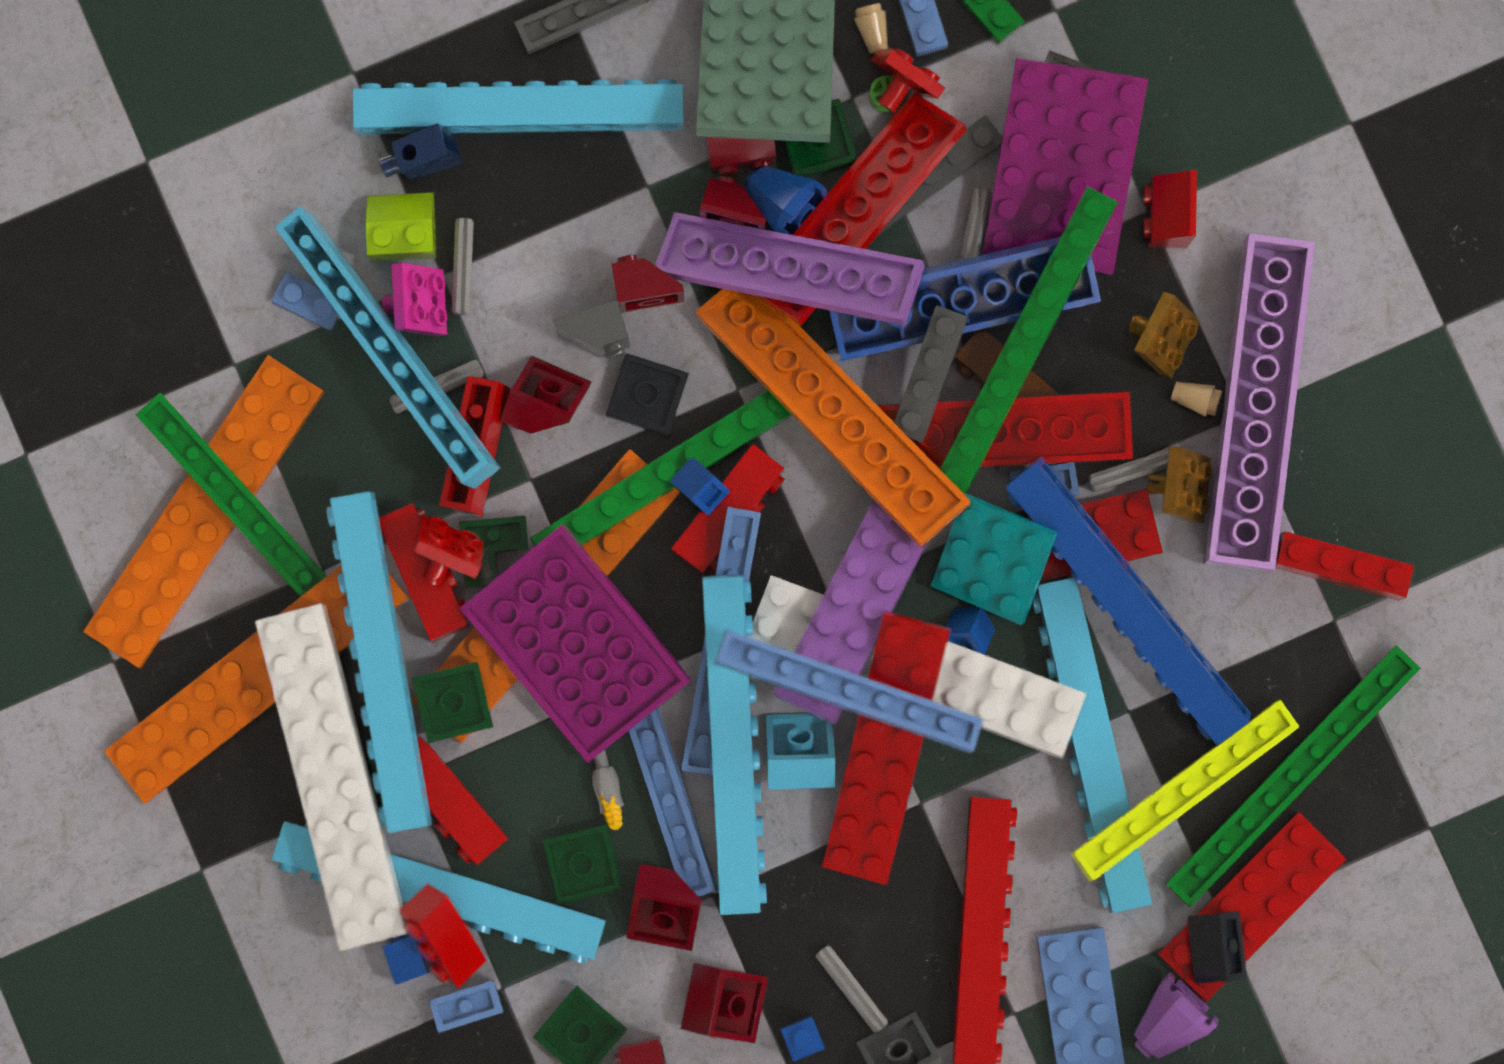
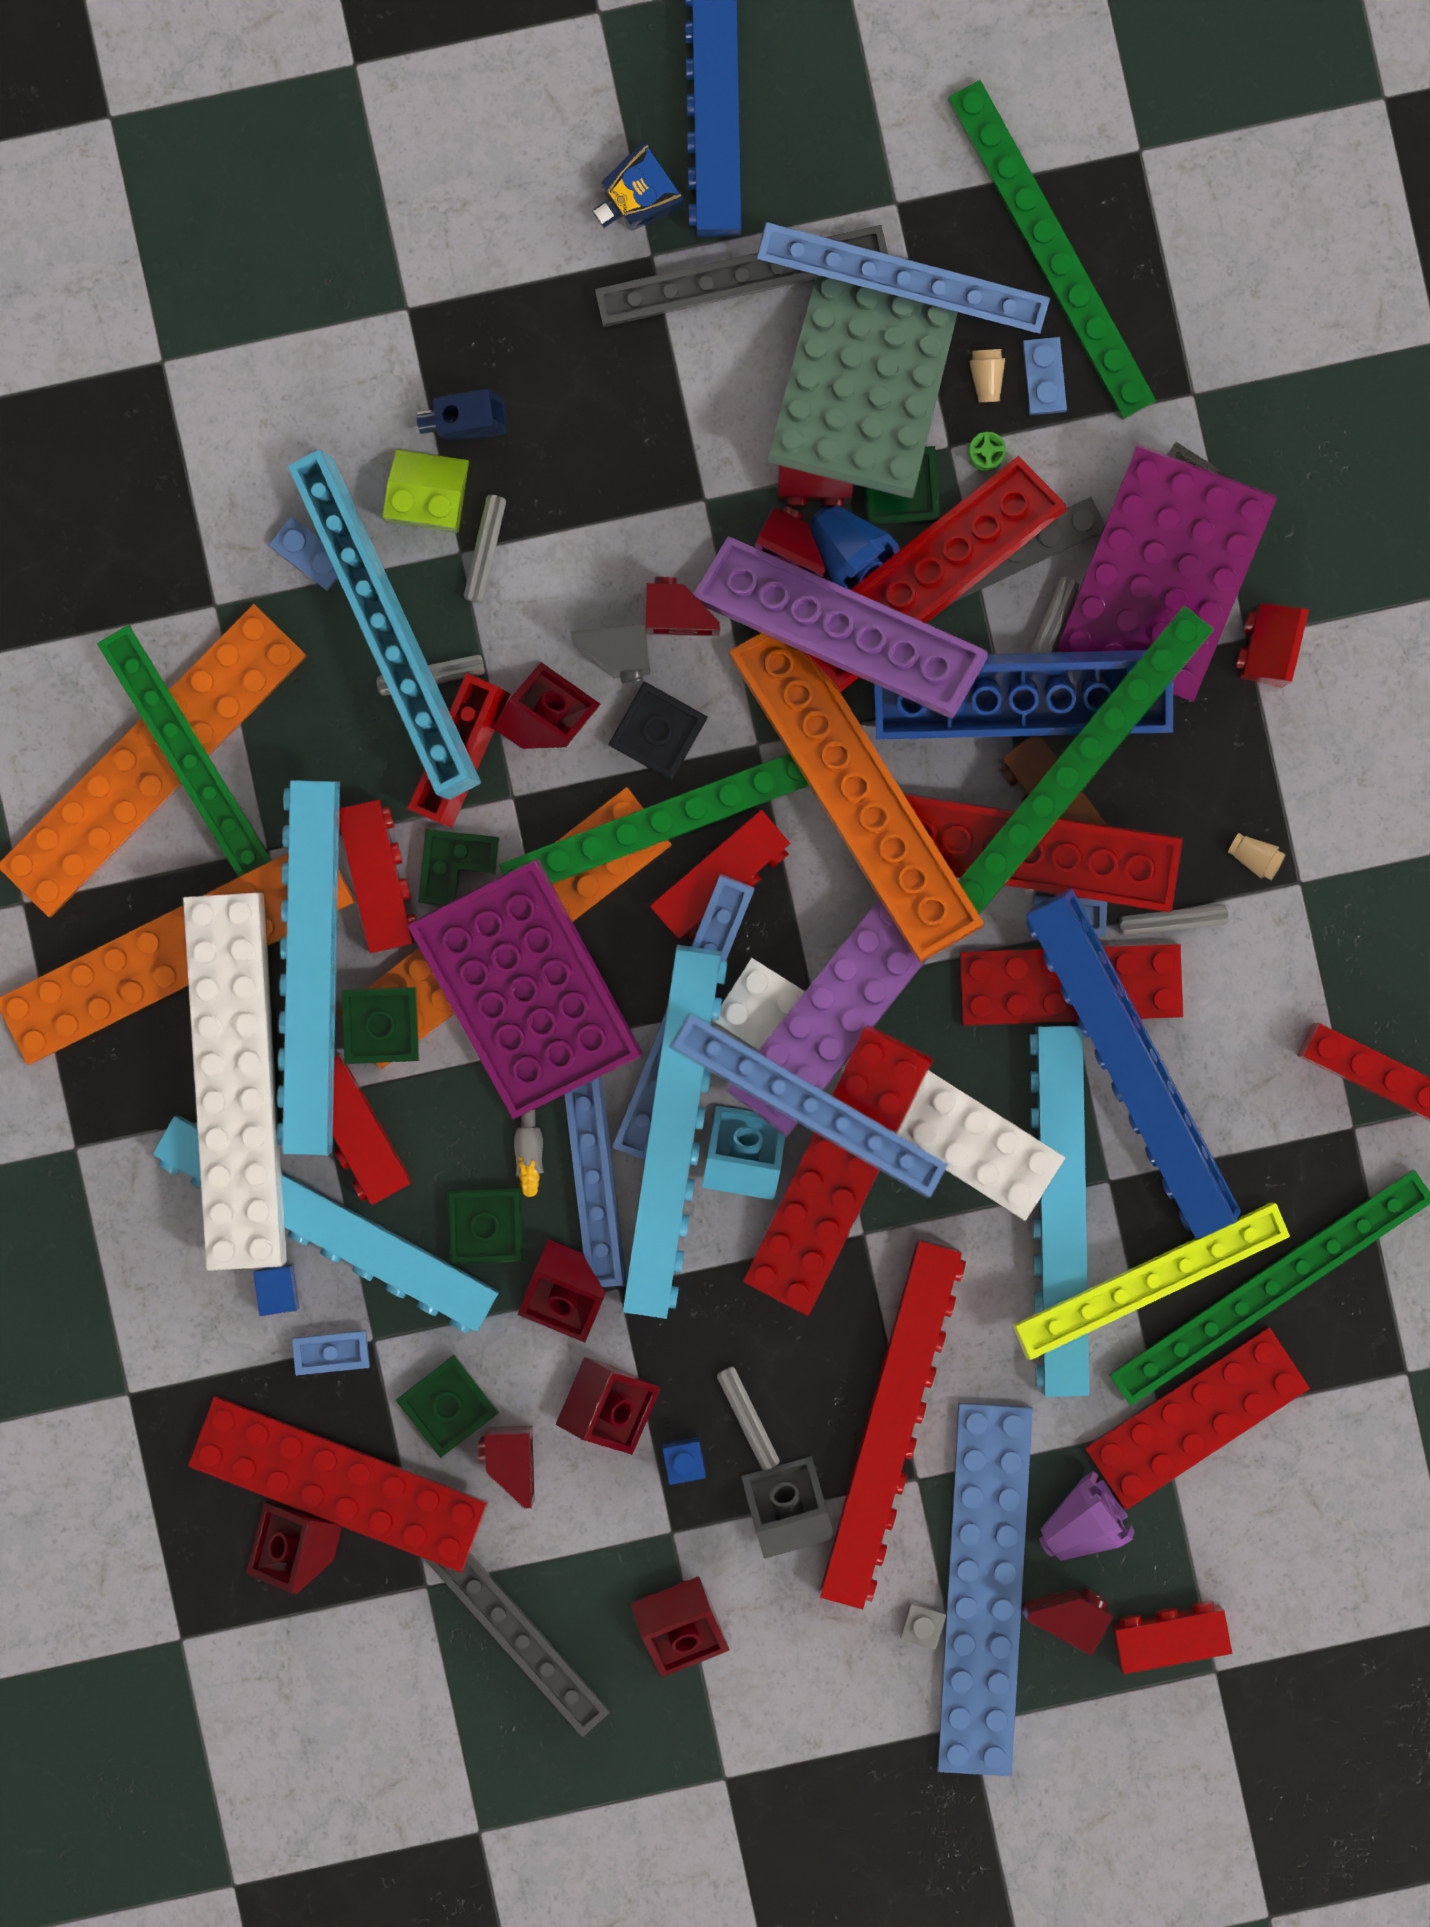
camera: 15 degrees right, 5 degrees up
(417, 299) = (428, 577): dark pink plate -> none
(442, 936) = (318, 1275): red brick -> none
(447, 549) = (406, 859): red plate -> none
(519, 107) = (581, 386): medium azure brick -> none
(700, 486) = (694, 845): blue panel -> none
(905, 77) = (1010, 440): red plate -> none
(930, 372) = (970, 772): dark grey plate -> none
(970, 628) = (956, 1059): blue panel -> none
(994, 560) = (997, 990): teal plate -> none
(1165, 334) = (1236, 780): pearl gold plate -> none
(1184, 485) = (1221, 949): pearl gold plate -> none
(1217, 947) = (1149, 1456): black panel -> none
(1259, 403) = (1323, 876): lavender brick -> none

